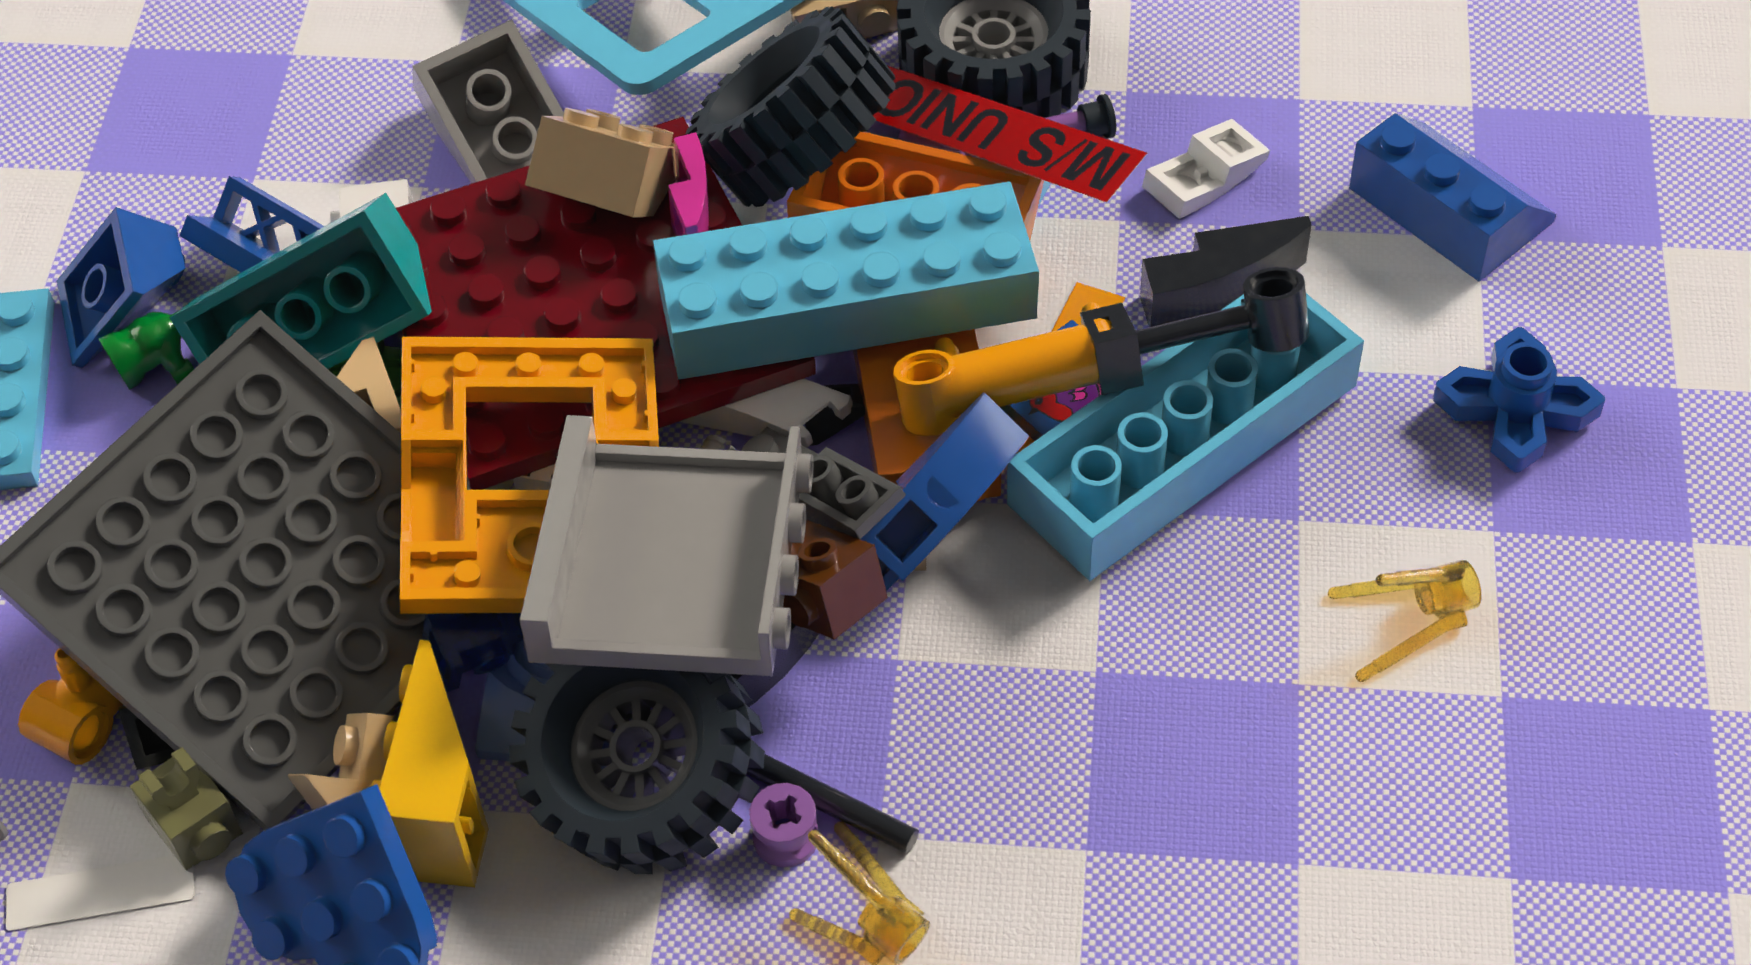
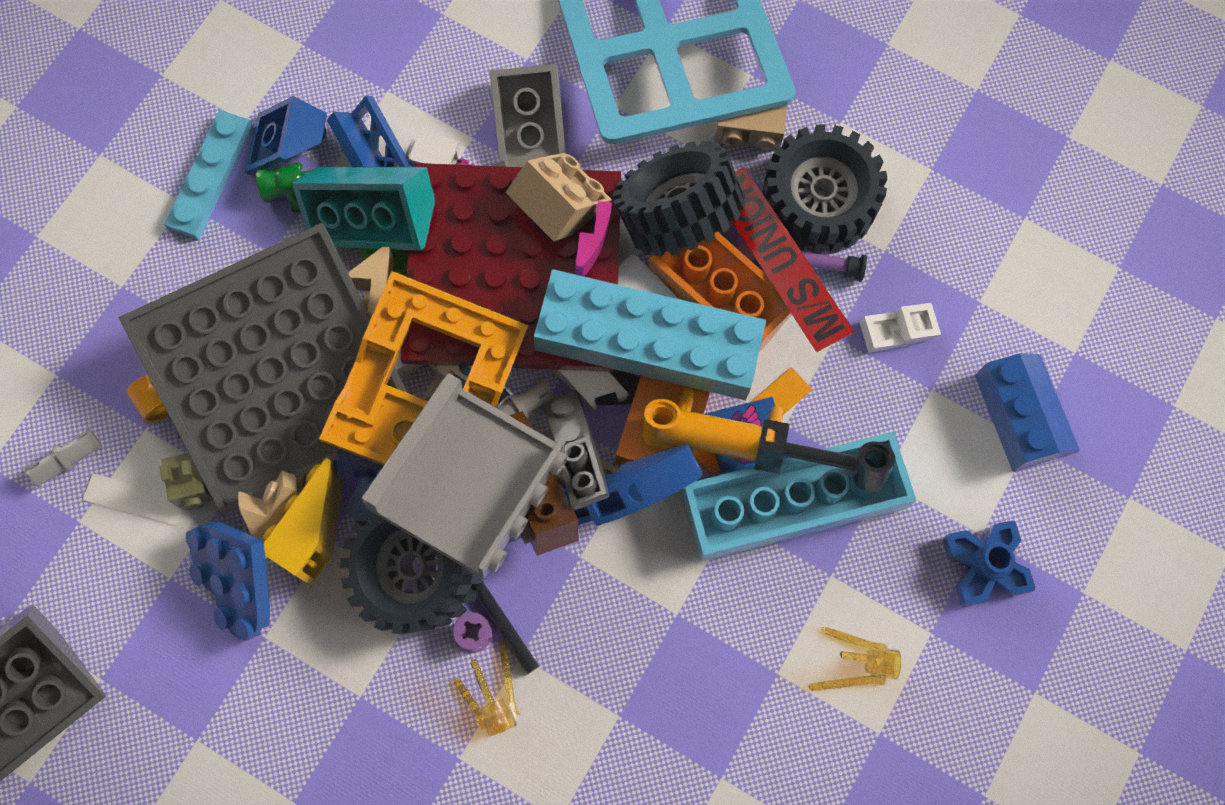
camera: 20 degrees right, 20 degrees up
(1215, 270) = (870, 403): black slope -> none

